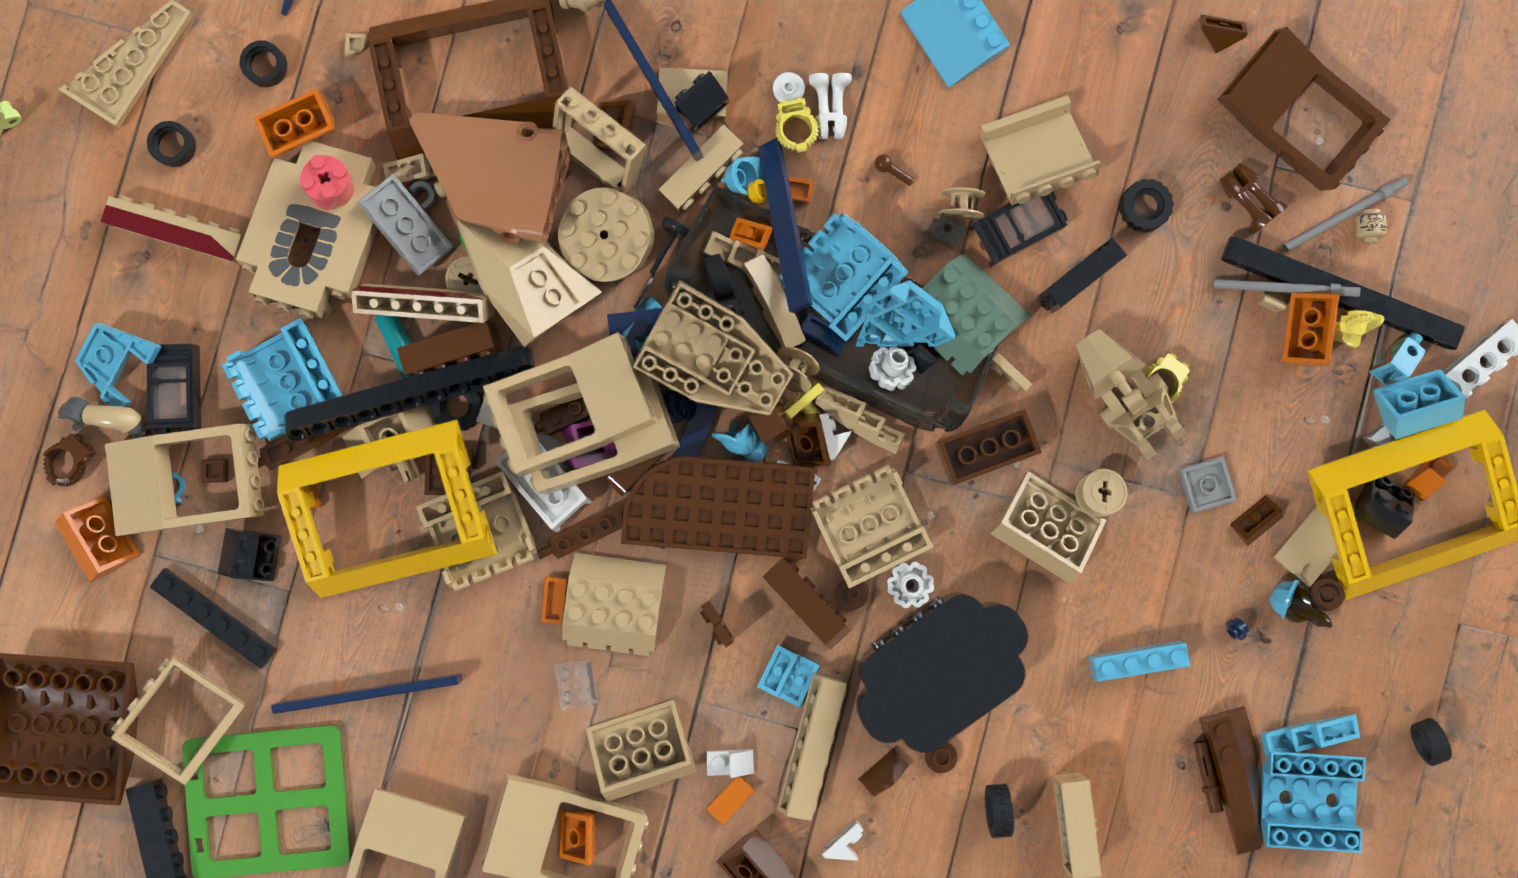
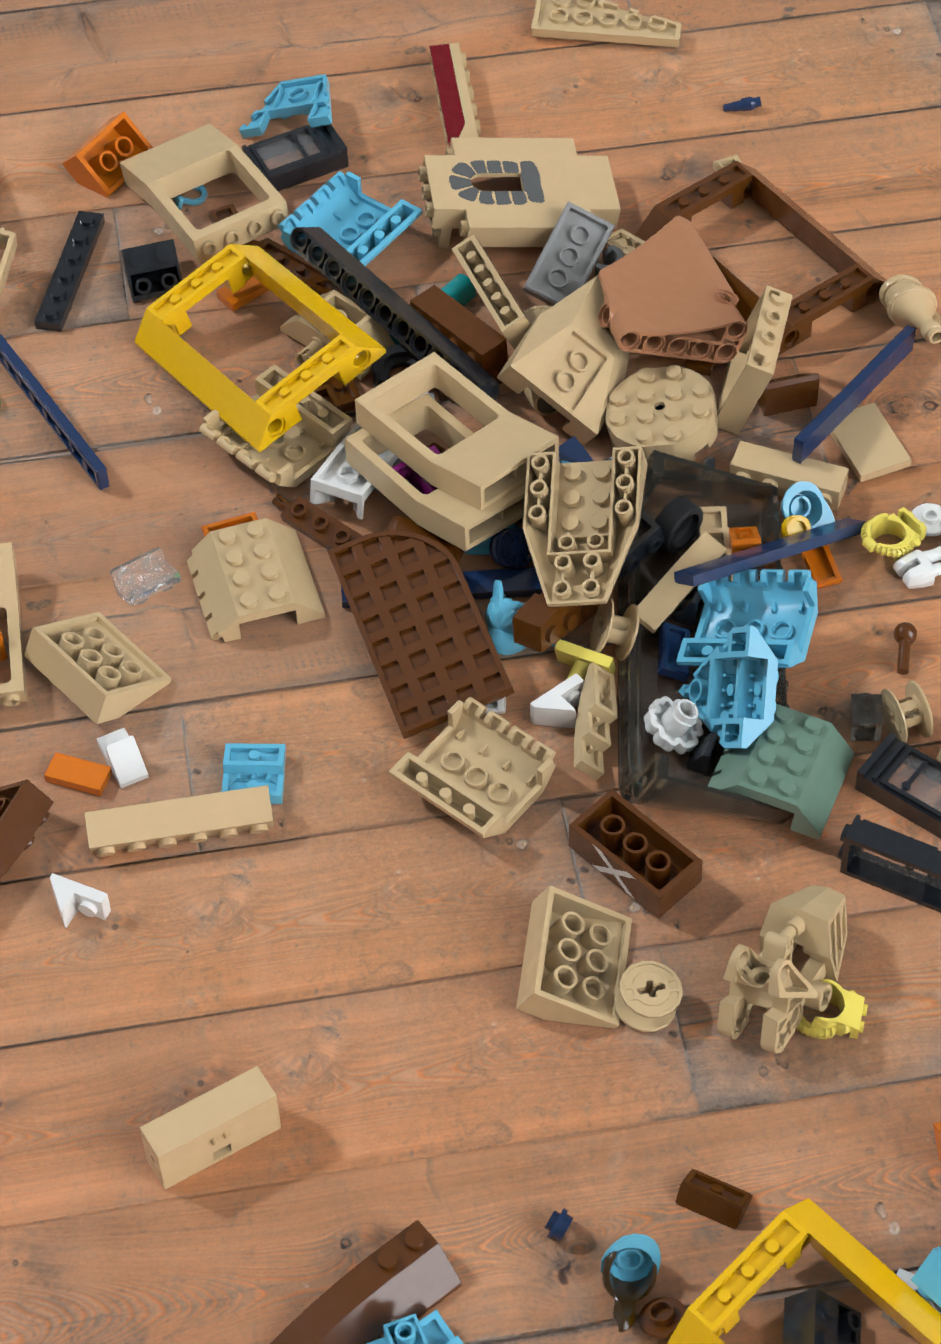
camera: 65 degrees right, 35 degrees down
(79, 450) = (191, 111): reddish brown piece -> none
(111, 417) = (239, 120): piece -> none
(154, 138) = (539, 85): black tyre -> none
(251, 51) = (663, 95): black tyre -> none
(295, 123) = (621, 141): orange slope -> none
(316, 184) = (572, 173): coral brick -> none
(701, 101) = (858, 435): black slope -> none
(721, 632) = (278, 675): reddish brown plate -> none
(804, 601) = (346, 754): reddish brown wedge -> none
(808, 442) = (542, 676): reddish brown slope -> none
(852, 597) = (385, 796): reddish brown piece -> none
(884, 773) = (181, 915): reddish brown slope -> none
(922, 584) = (425, 847): white plant -> none
(941, 671) = (336, 907): black brick -> none
(942, 759) = (229, 963): reddish brown piece -> none
(999, 810) = (190, 1033): black tyre -> none
(1016, 379) = (741, 837): tan plate -> none
(1138, 661) = (458, 1123): medium azure brick -> none
(1207, 485) = (727, 1120): light grey tile -> none
(1210, 785) = (330, 1276): reddish brown pin -> none
(1307, 548) = (695, 1266): tan tile -> none

